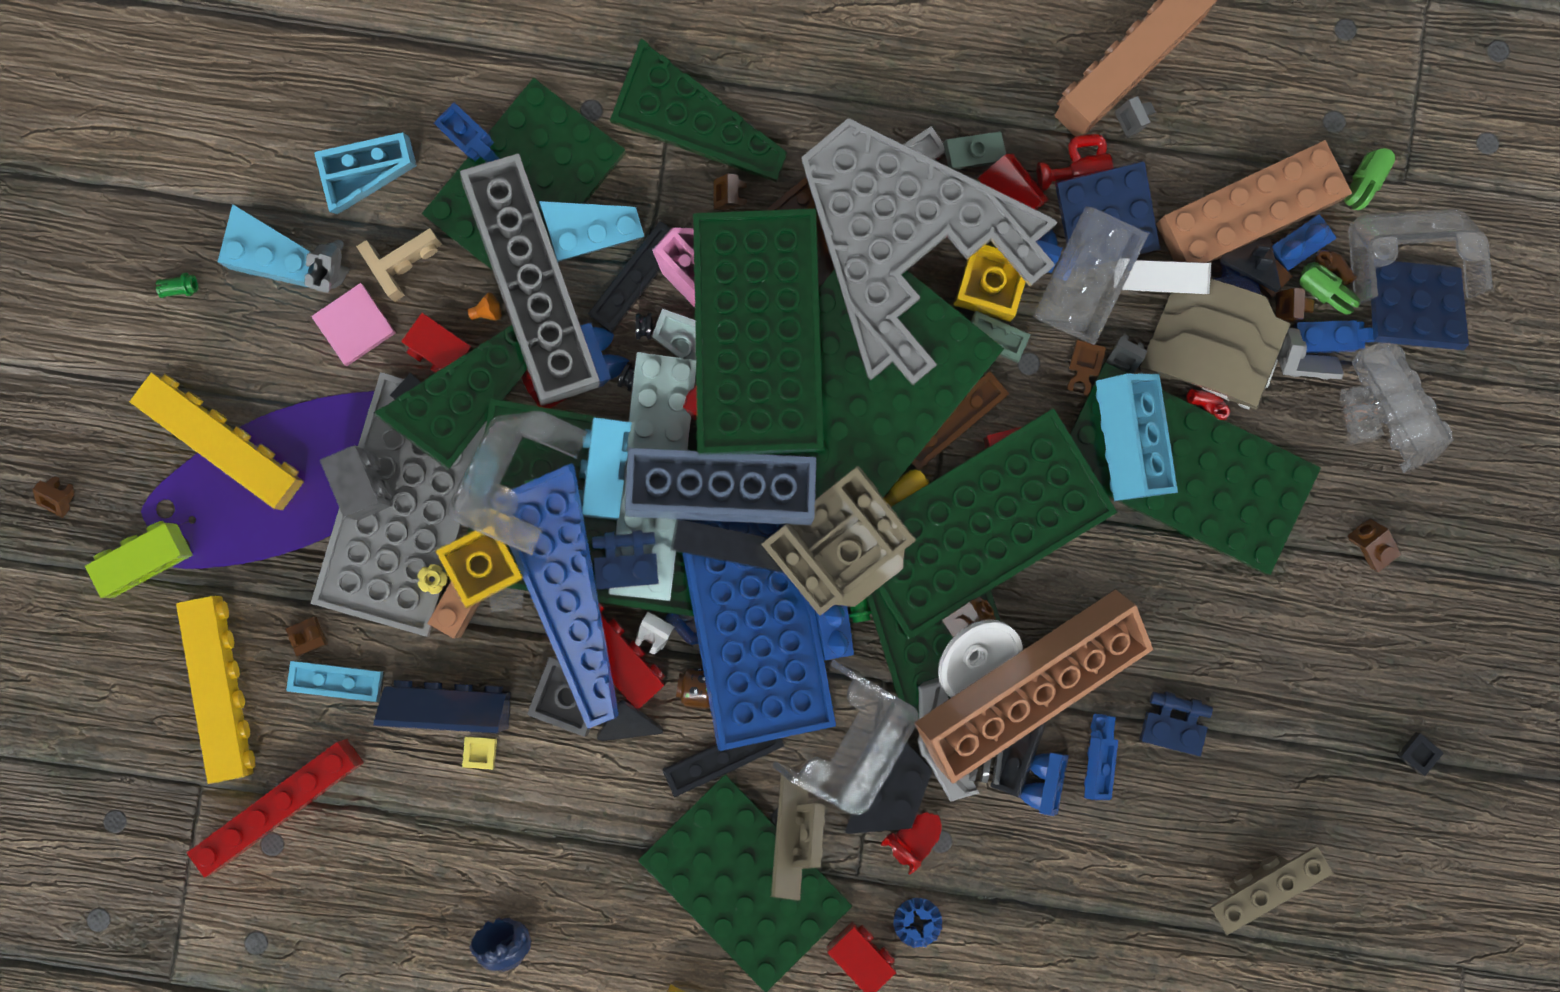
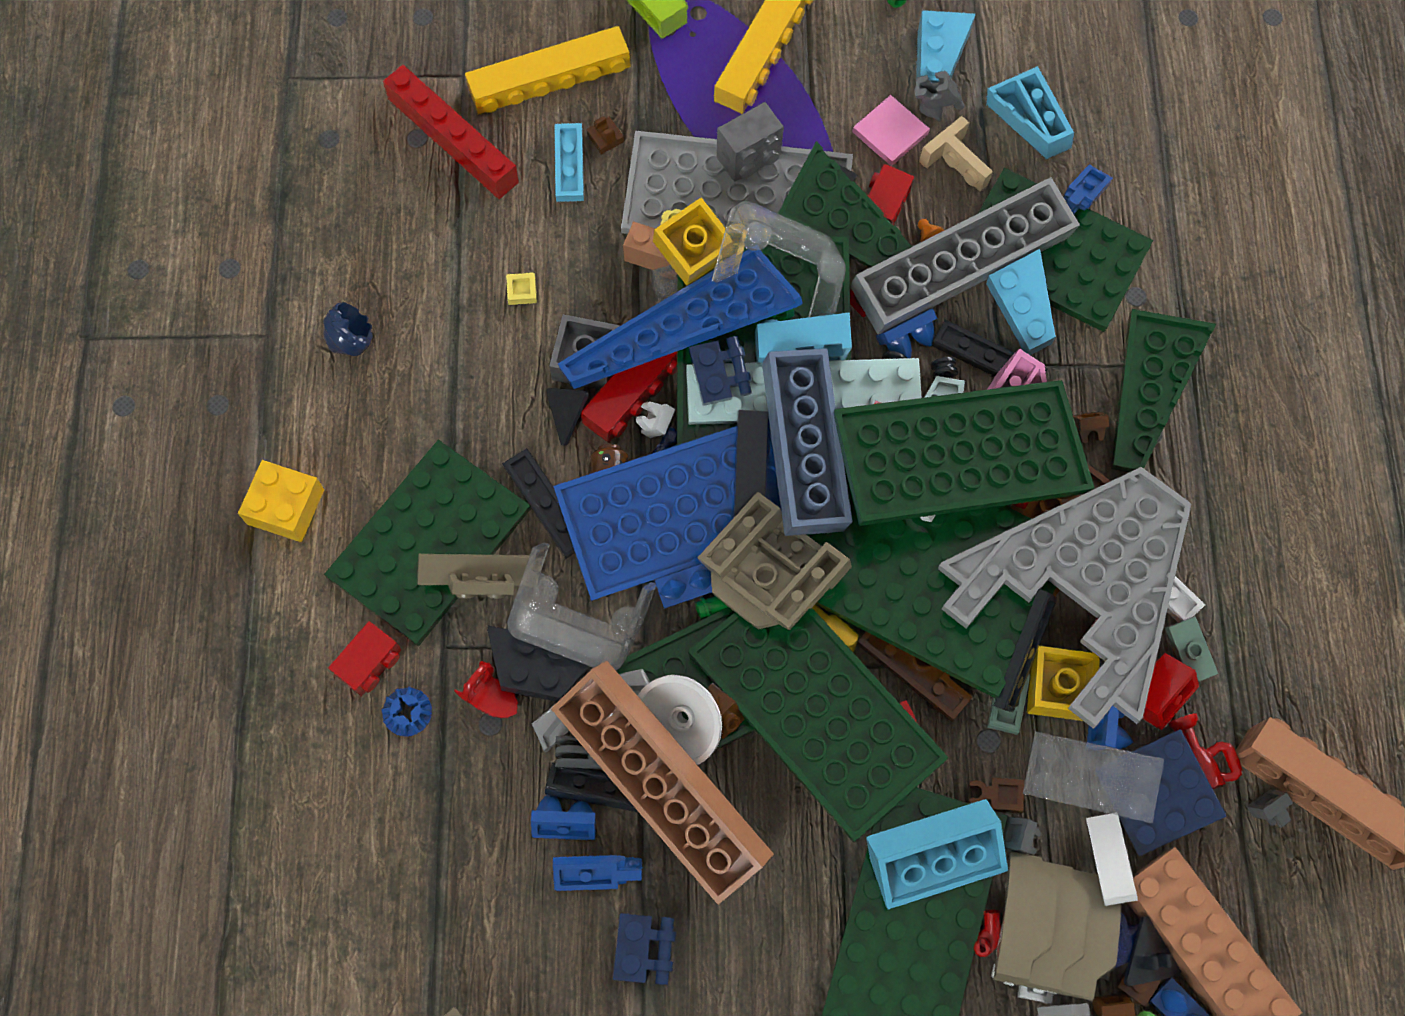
camera: 80 degrees right, 15 degrees down
(443, 707) = (558, 250): dark blue slope -> none
(962, 311) = (1026, 650): none -> black tile

